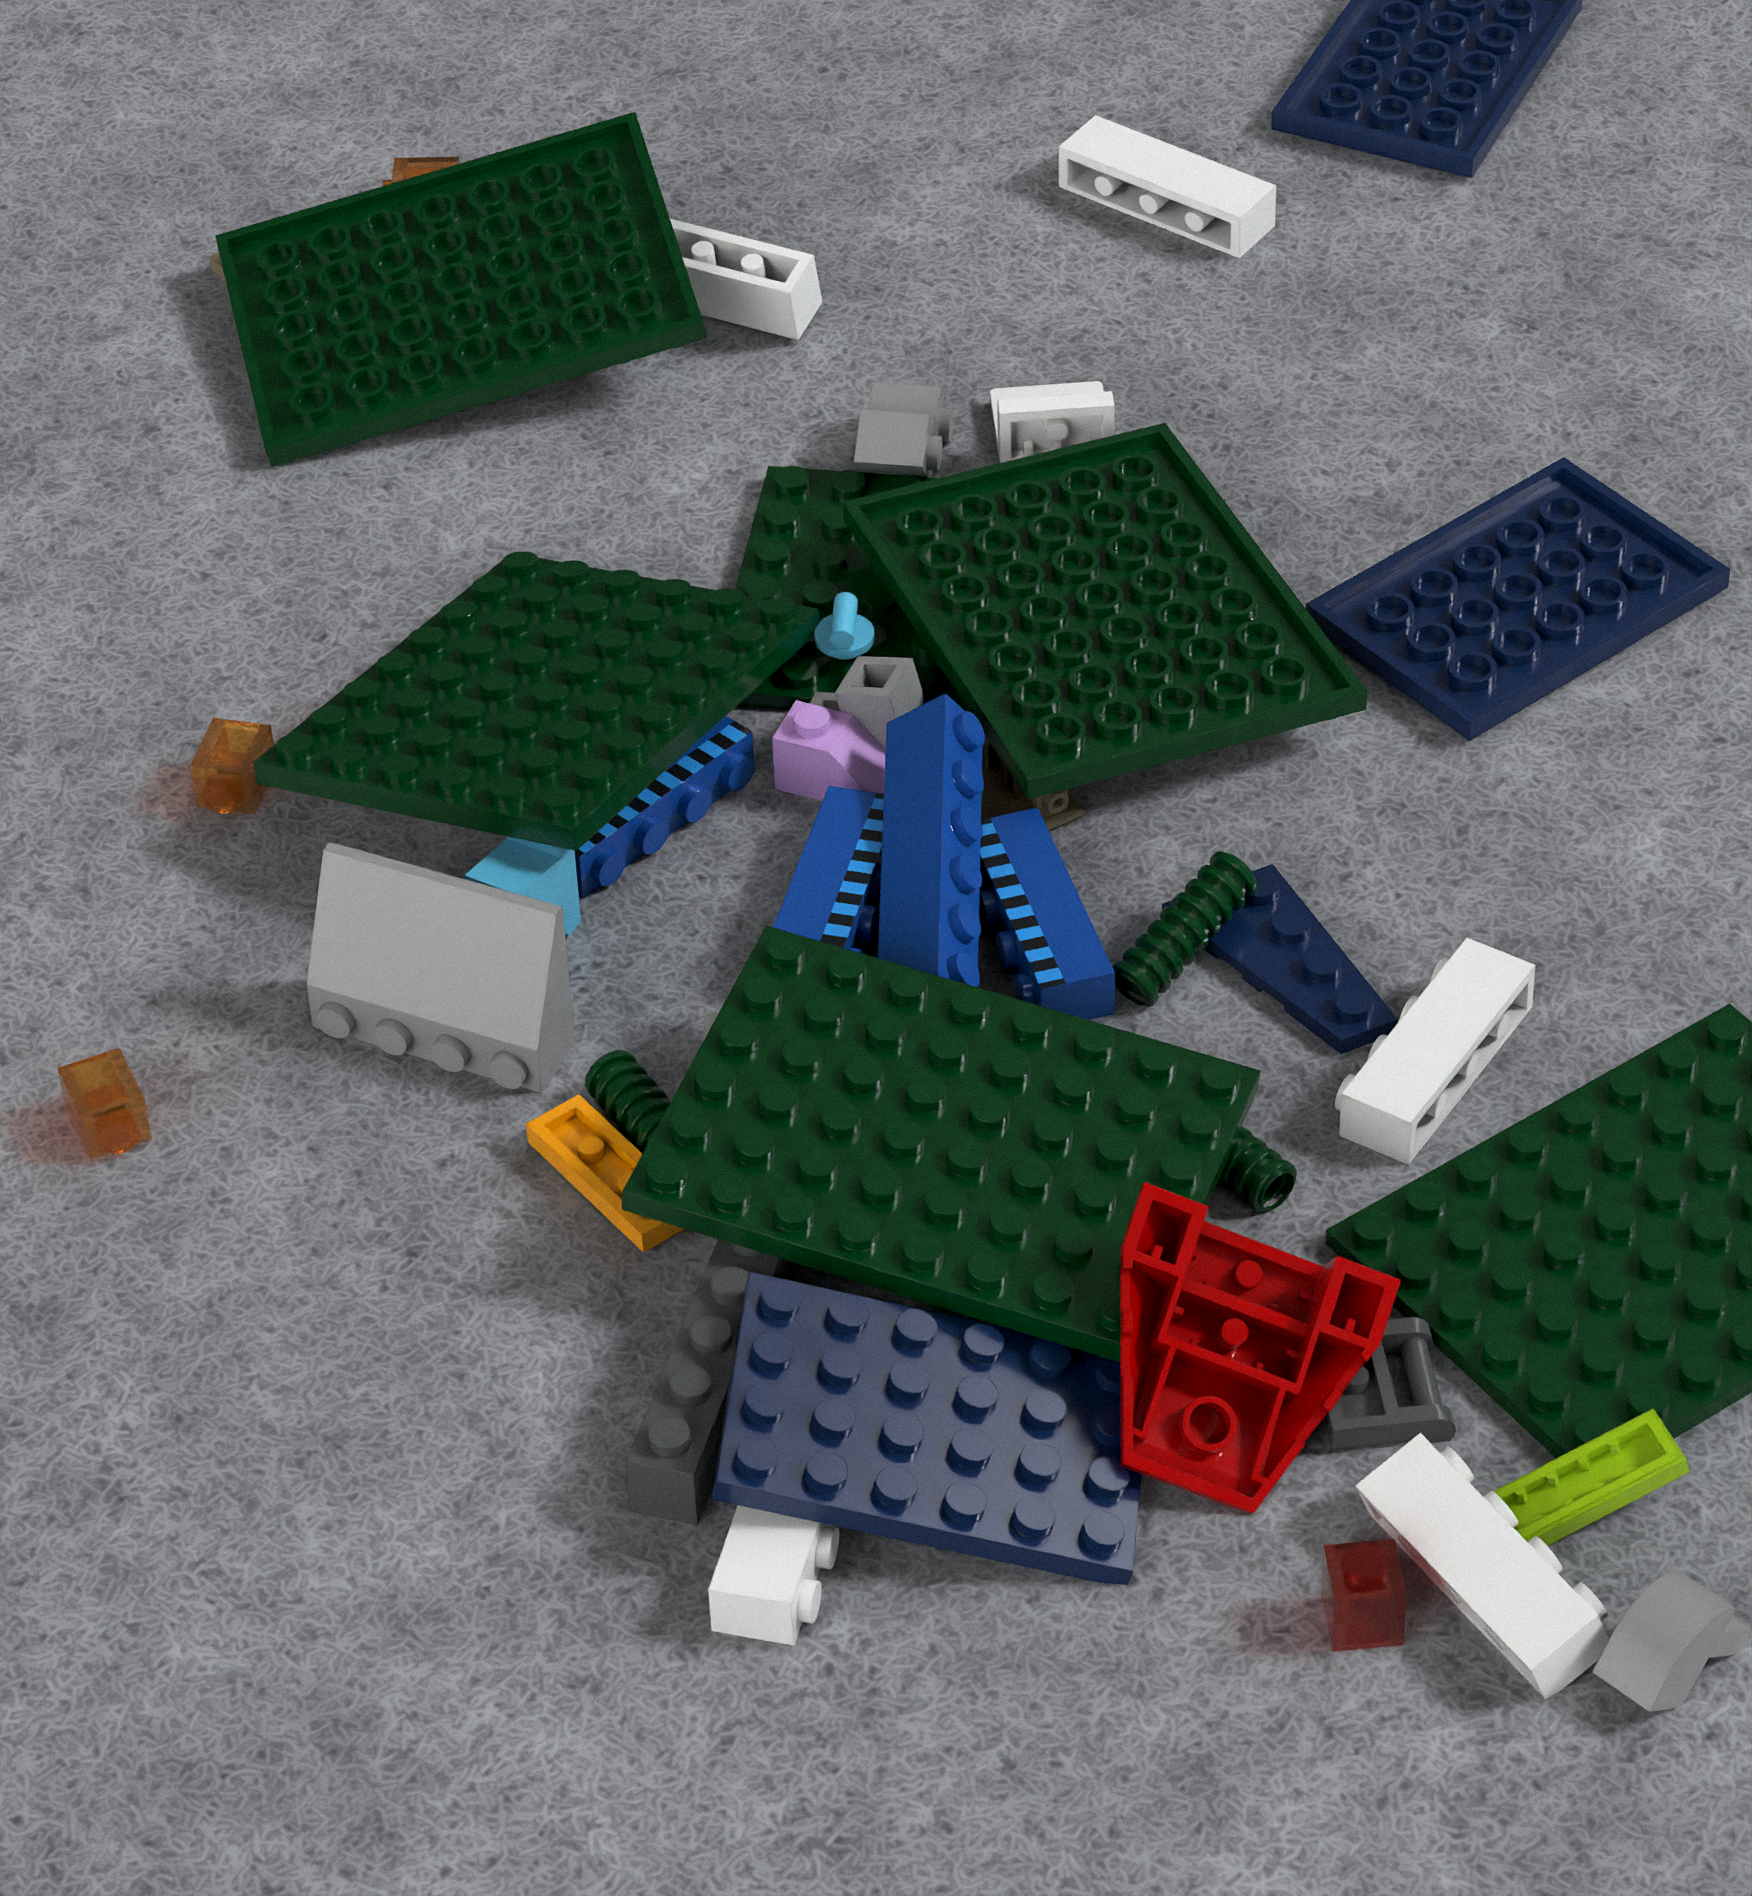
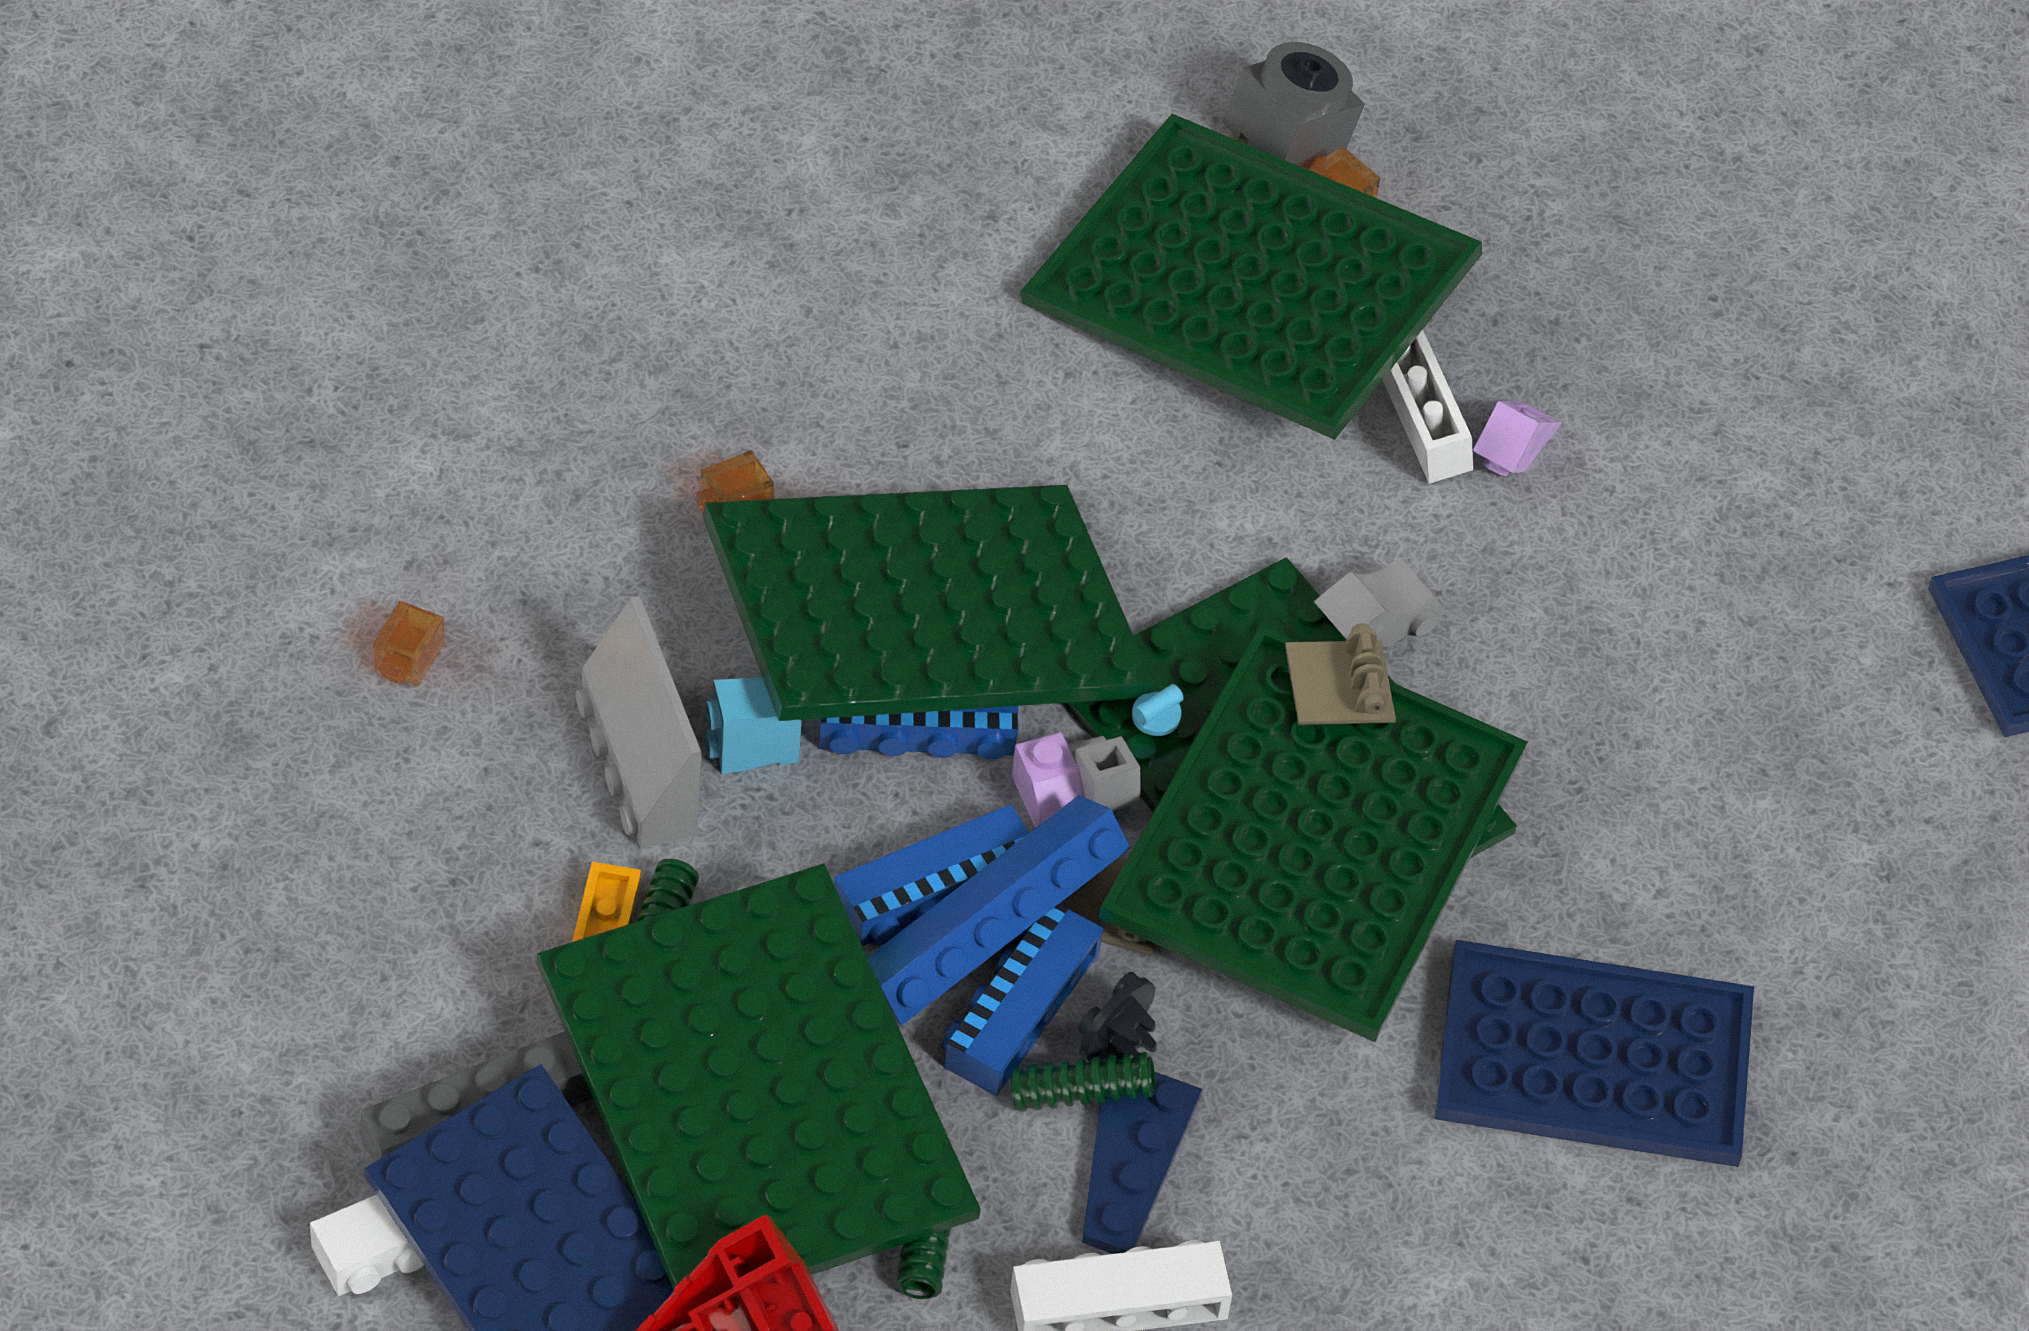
camera: 40 degrees right, 10 degrees up
(315, 148) = (1295, 104): none -> dark grey piece
(834, 246) = (1514, 436): none -> lavender slope
(974, 478) = (1341, 680): none -> dark tan hinge
(1049, 417) = (1488, 676): white bracket -> none
(1157, 857) = (1121, 1023): none -> black plate
(1167, 186) = (1791, 573): white brick -> none

